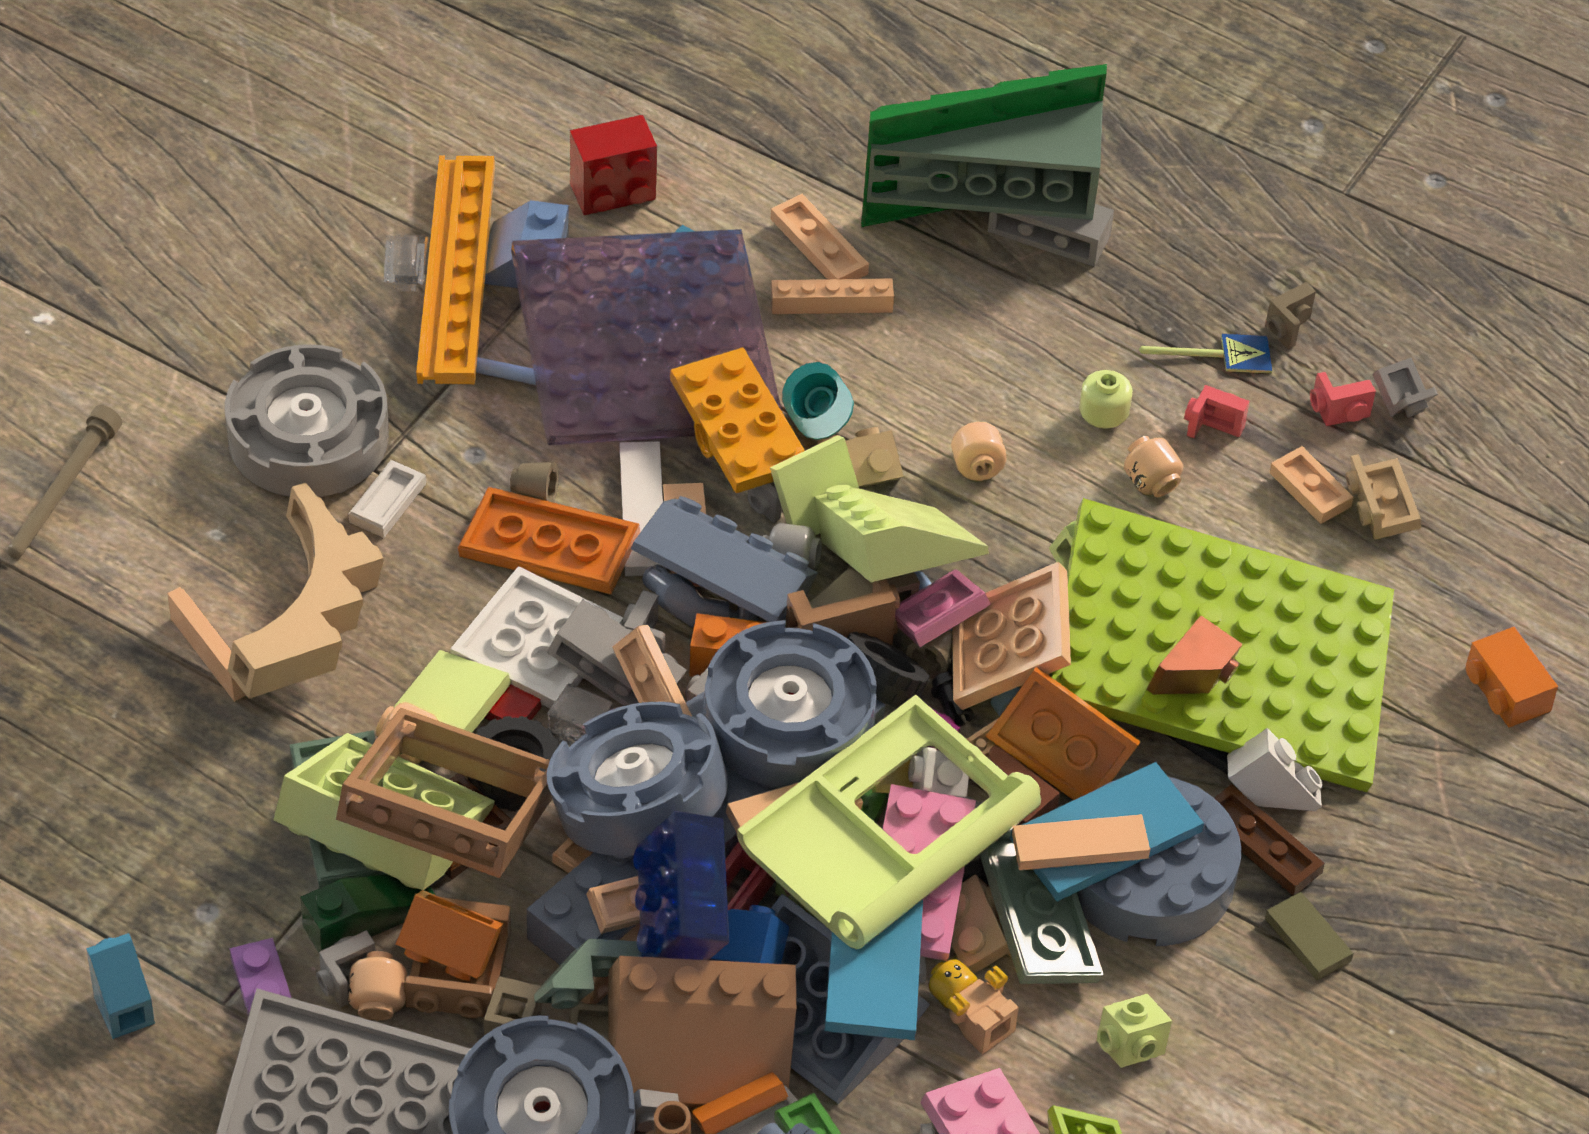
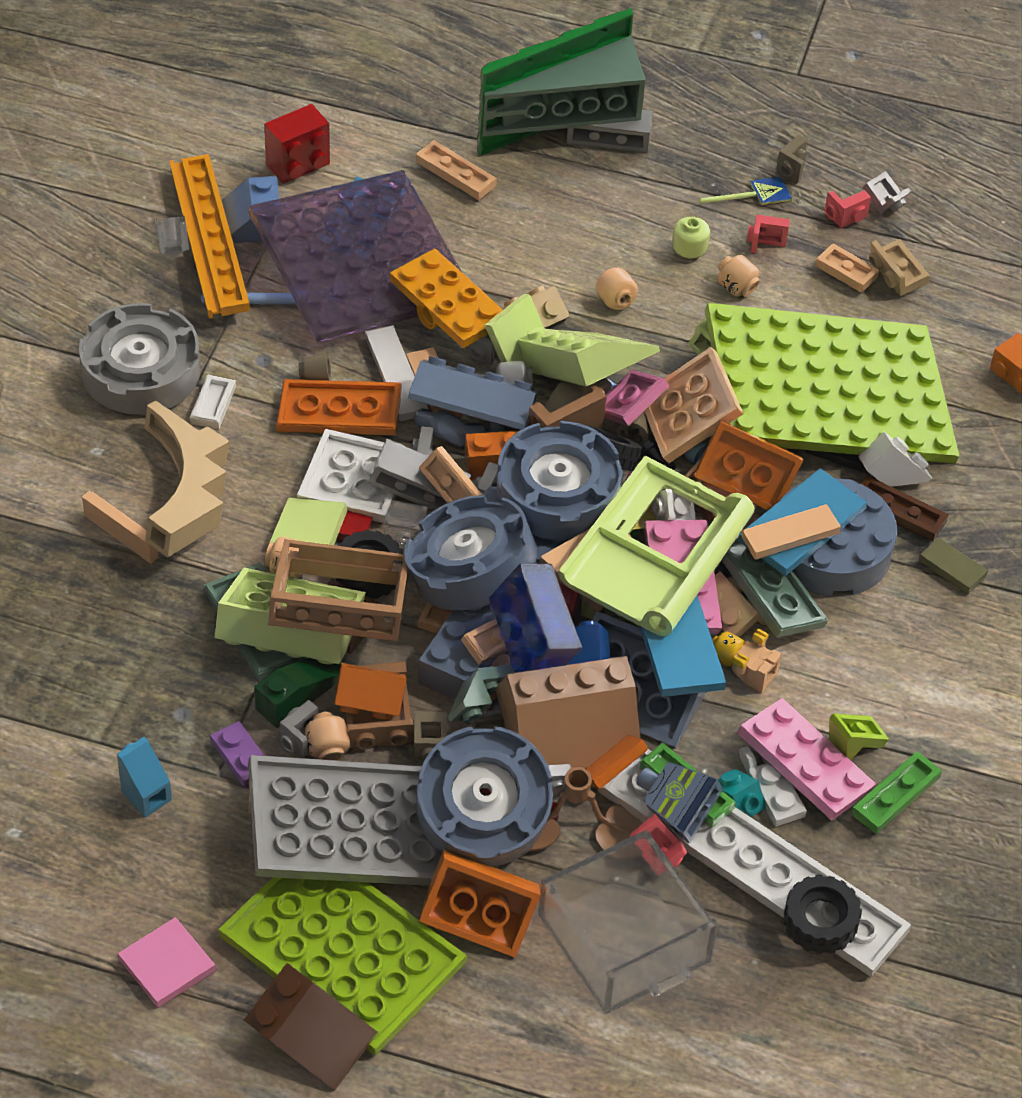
camera: 15 degrees left, 0 degrees up
(817, 400) = (497, 275): teal piece -> none
(832, 296) = (477, 205): light nougat piece -> none
(1134, 1030) = (863, 652): yellowish green brick -> none
(1197, 661) = (825, 395): slope -> none

